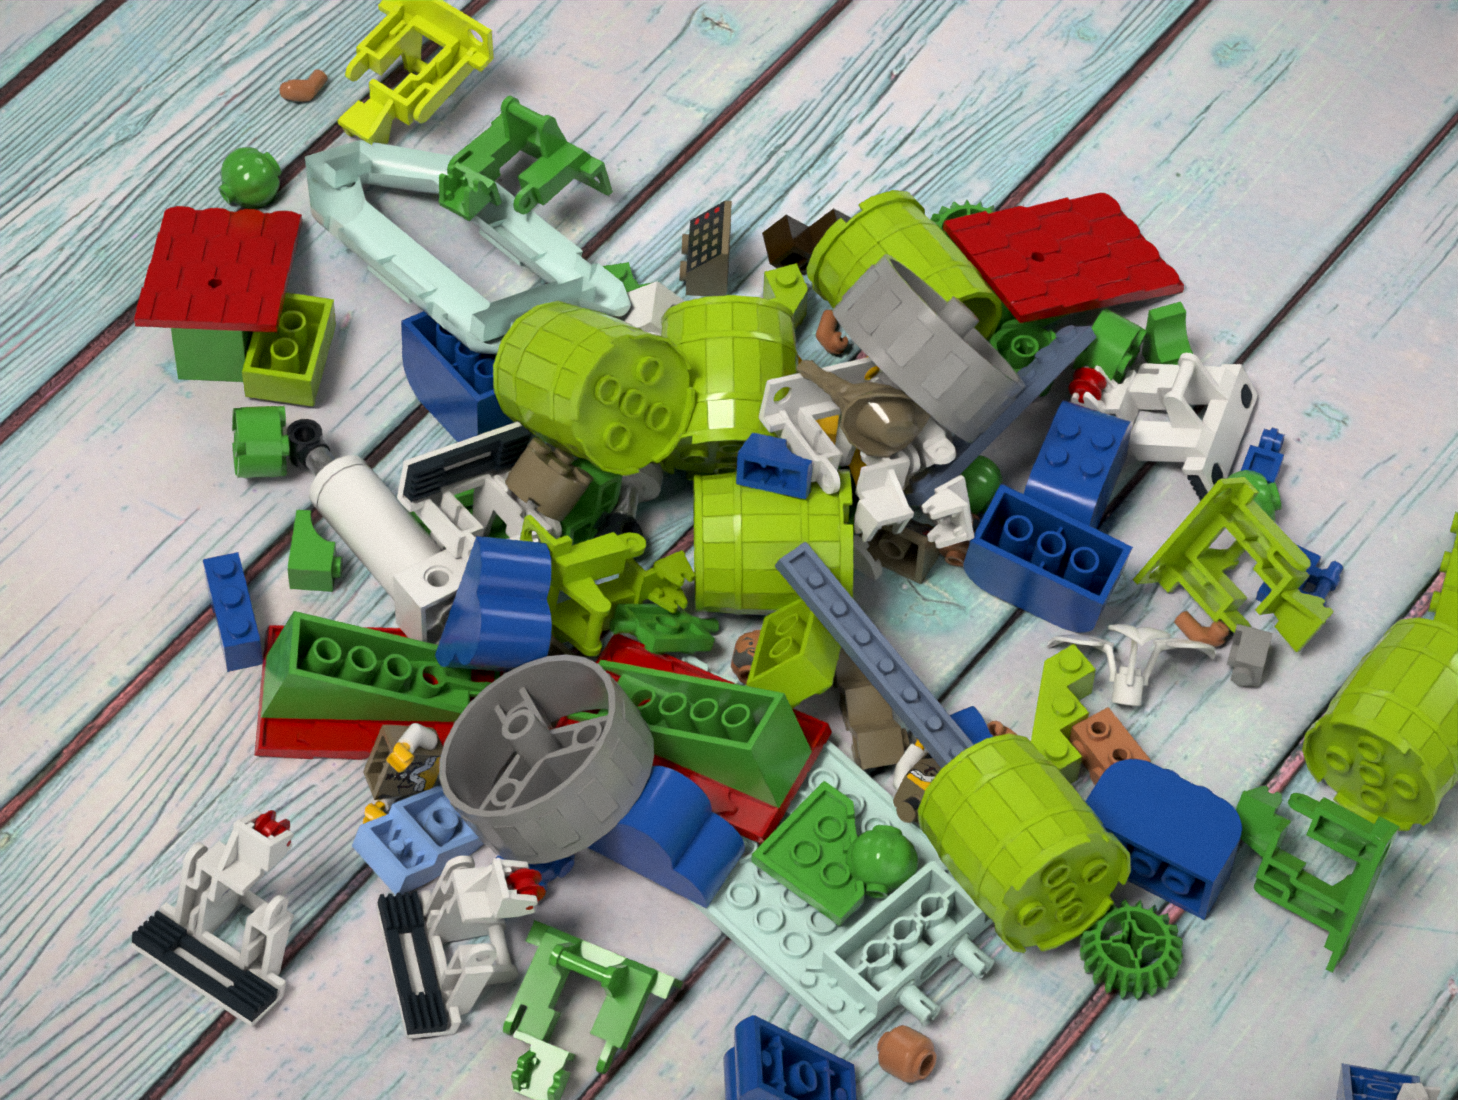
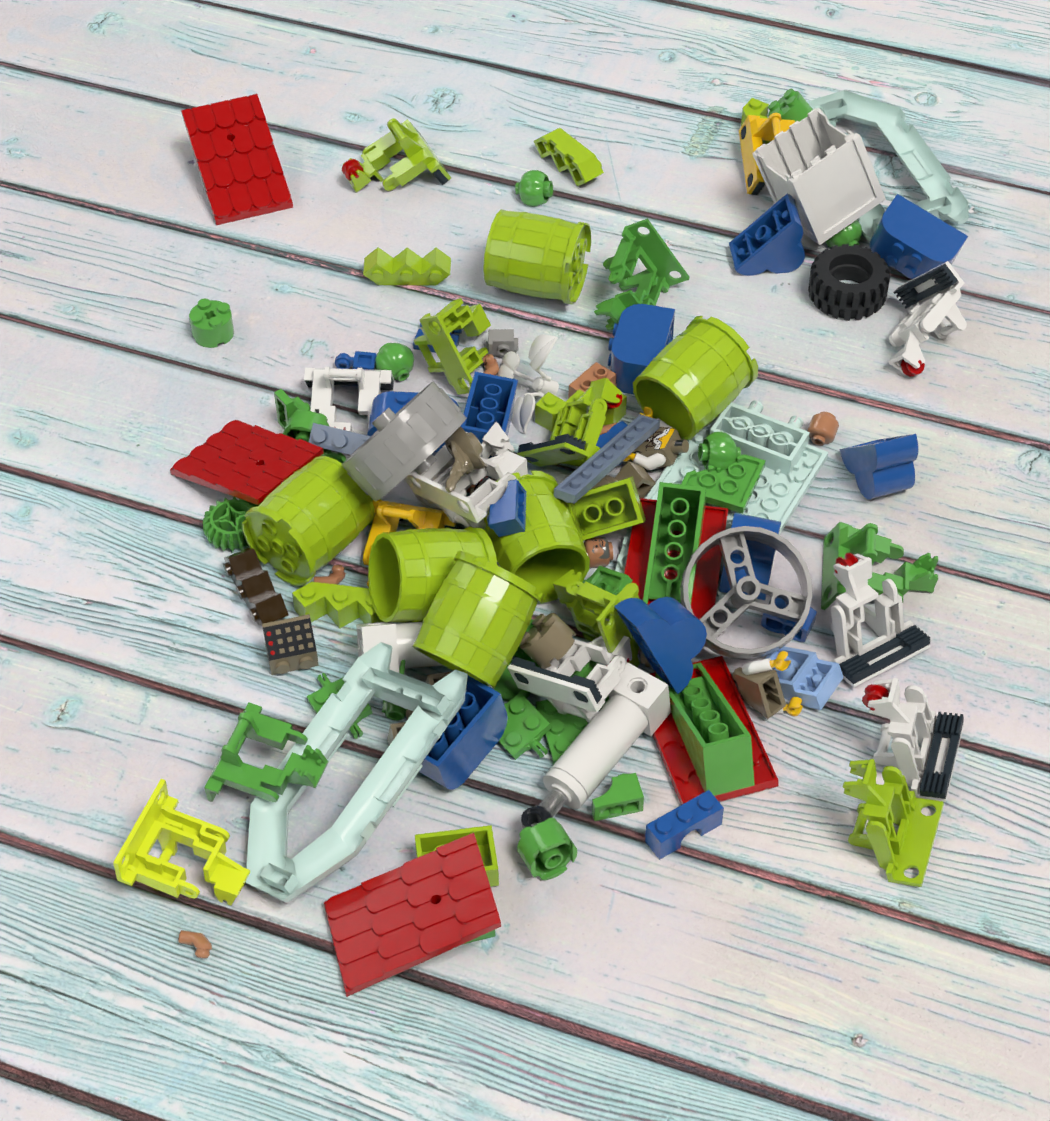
camera: 105 degrees left, 5 degrees down
(75, 866) = (890, 805): none -> lime container
(249, 178) = (301, 944): bright green plant -> none
(944, 636) = (575, 431): none -> lime container
(1401, 289) = (211, 323): none -> bright green brick

